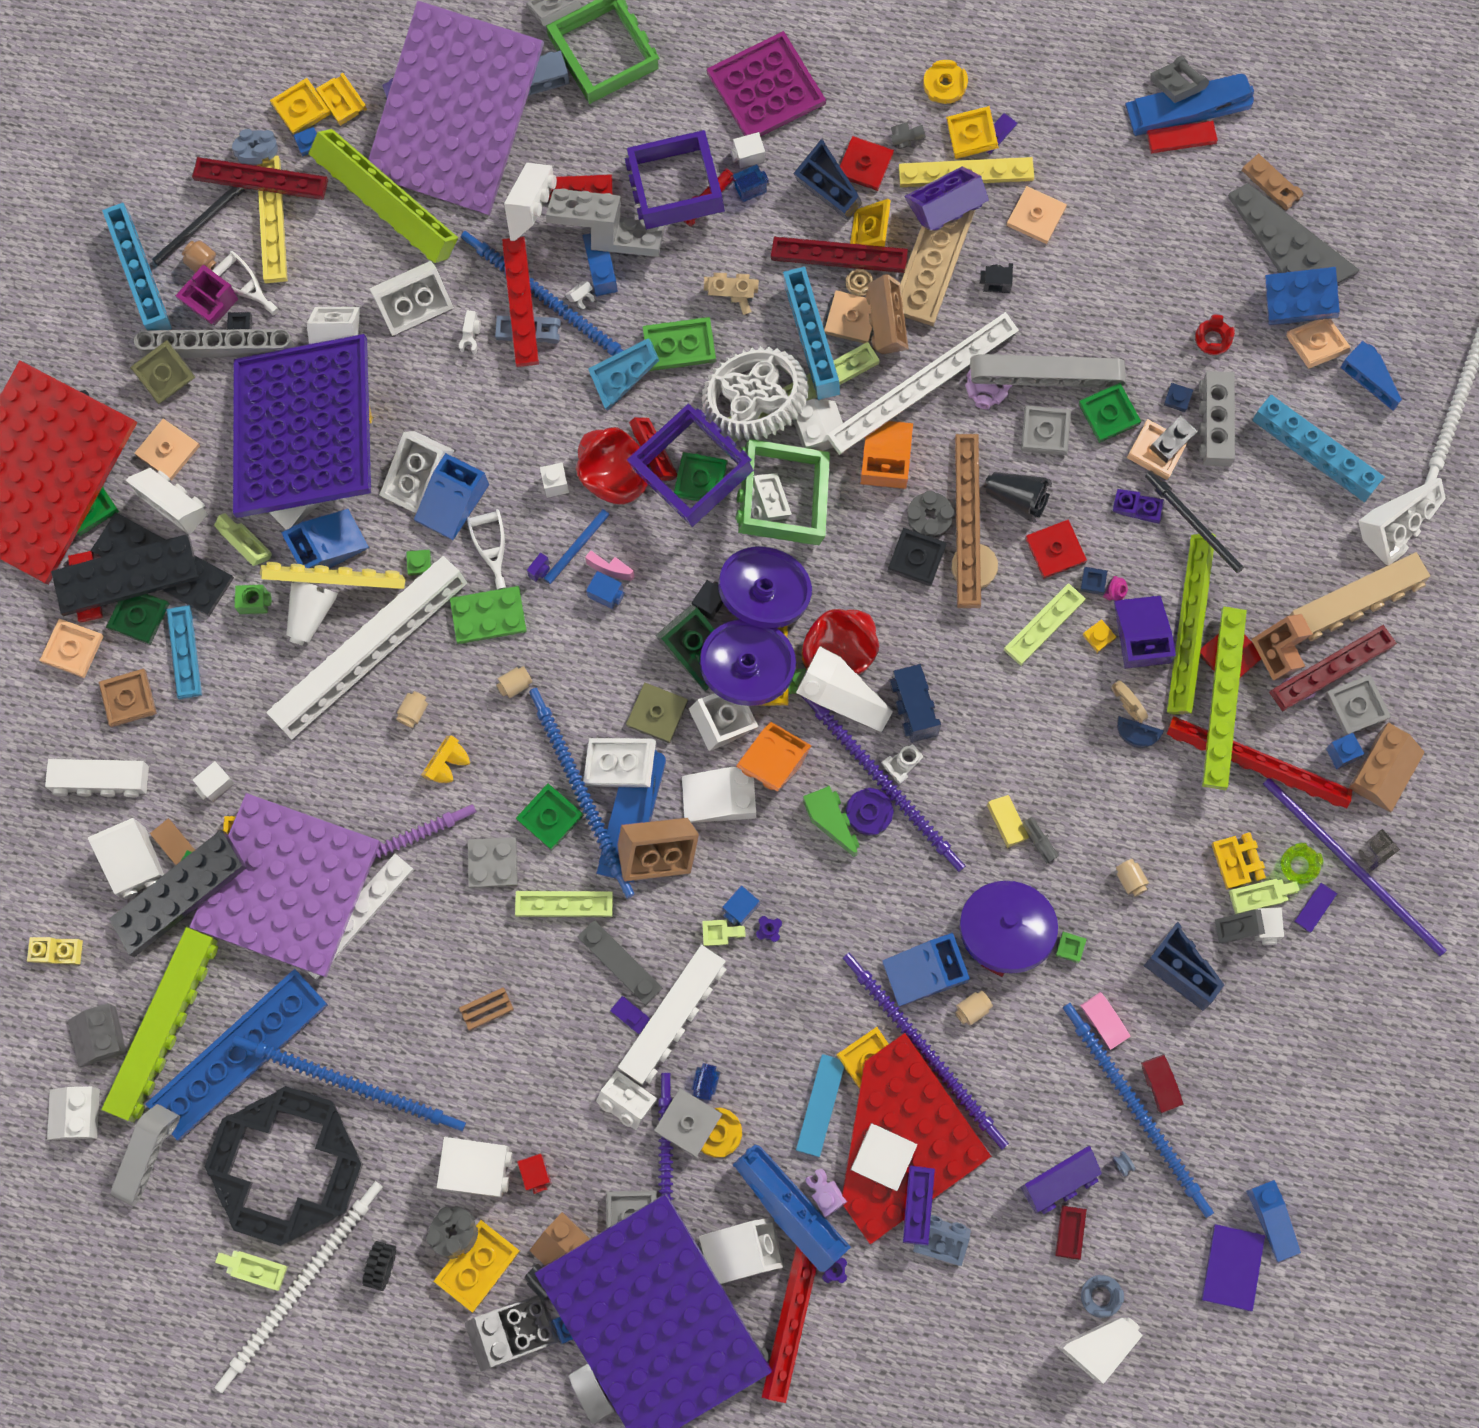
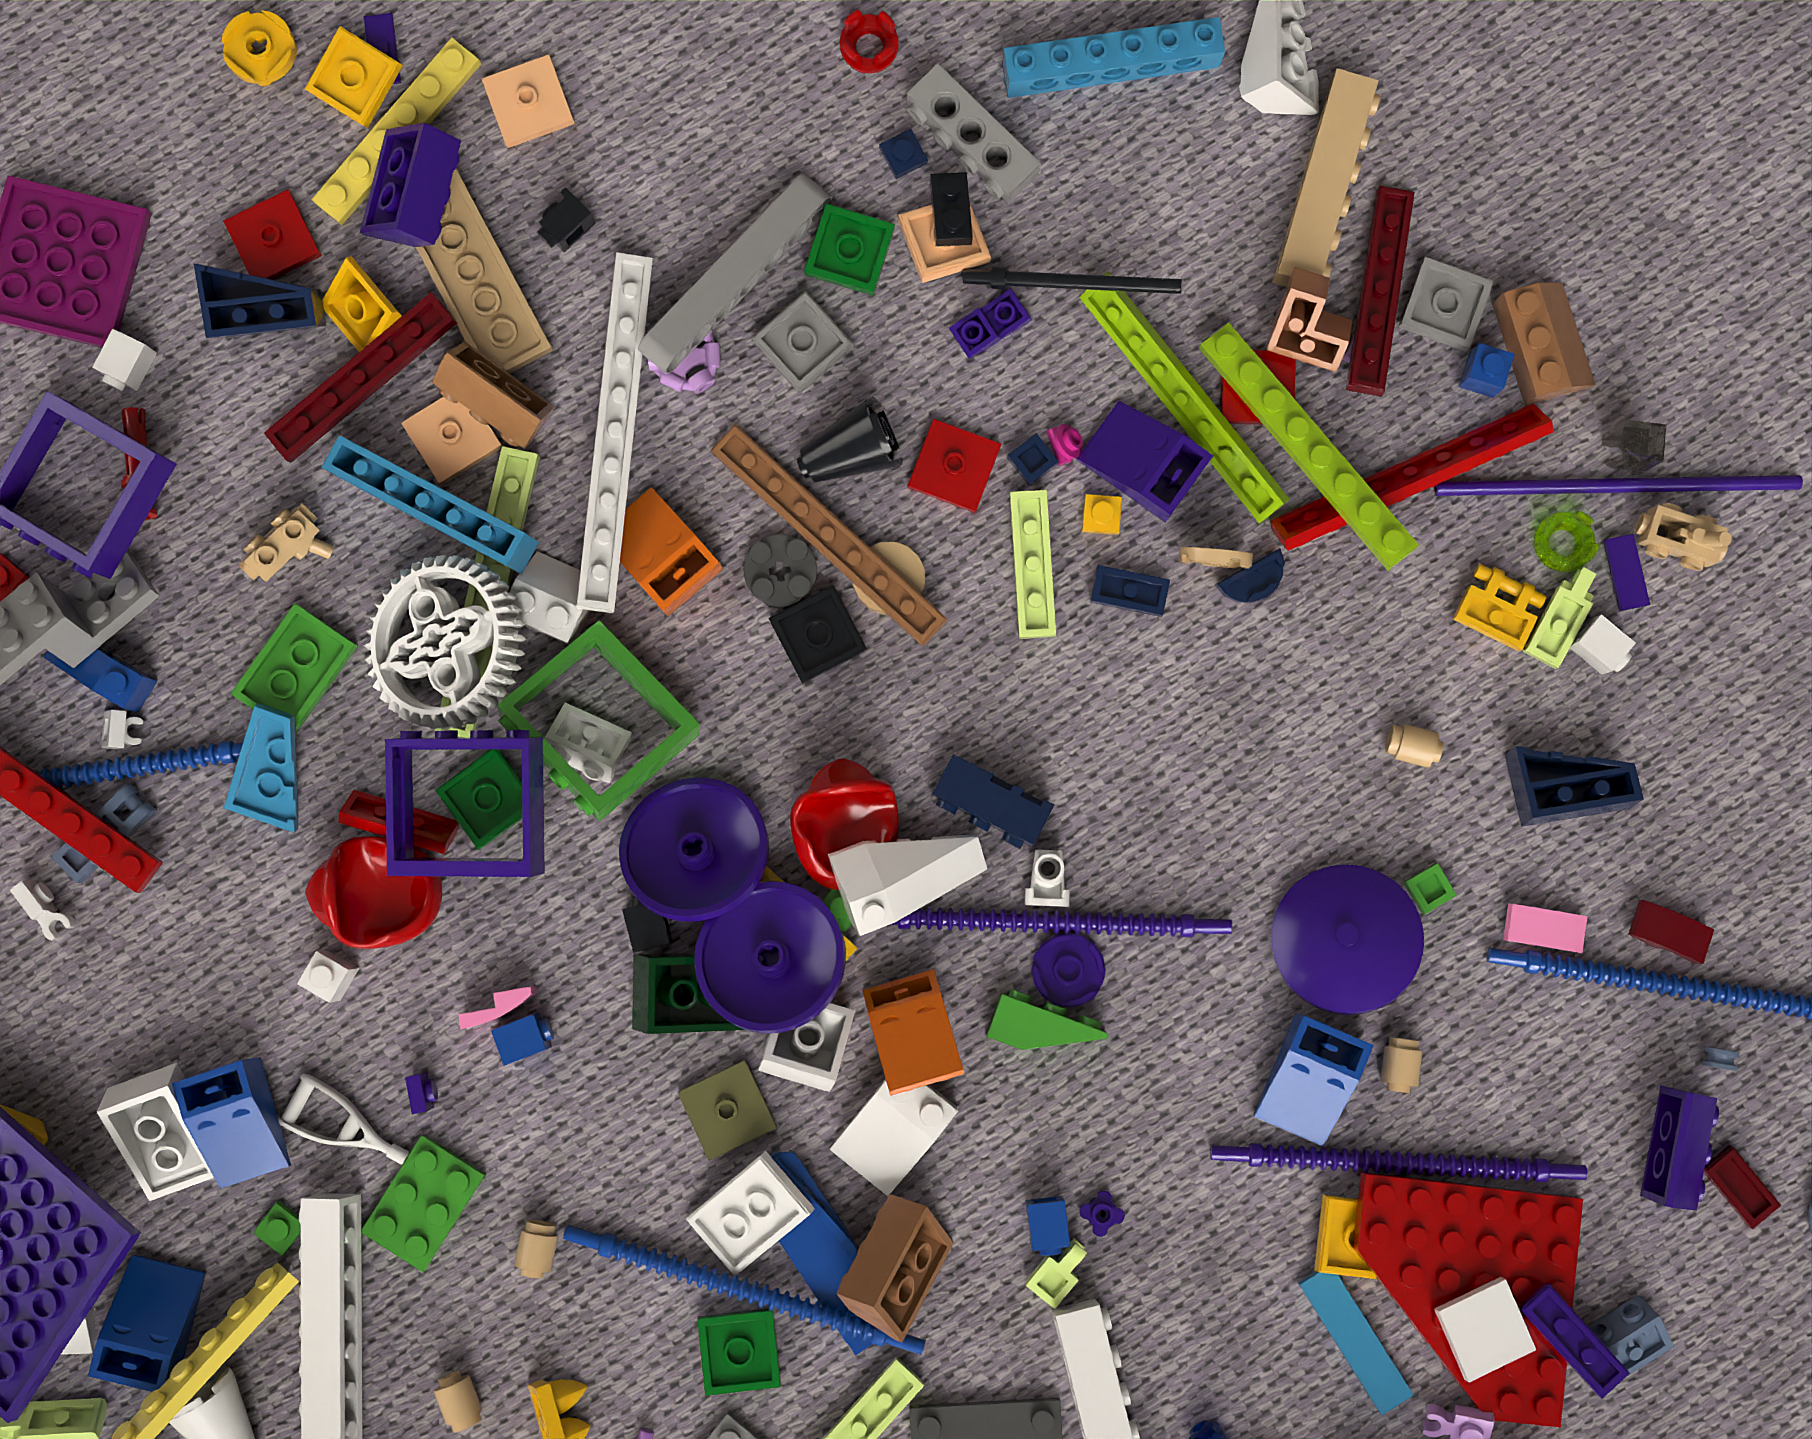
camera: 50 degrees left, 10 degrees up
(576, 546) = (435, 1021): blue bar -> none
(750, 183) = (168, 397): clear blue brick -> none
(856, 276) = (406, 386): tan plate -> none
(903, 135) = (281, 161): dark grey plate -> none
(1007, 820) = (1221, 822): light yellow slope -> none
(1040, 840) = (1278, 807): dark grey axle -> none
(1075, 680) = (1130, 591): none -> dark blue plate
(1240, 926) = (1579, 680): dark grey plate -> none
(1361, 923) = (1692, 539): none -> tan brick

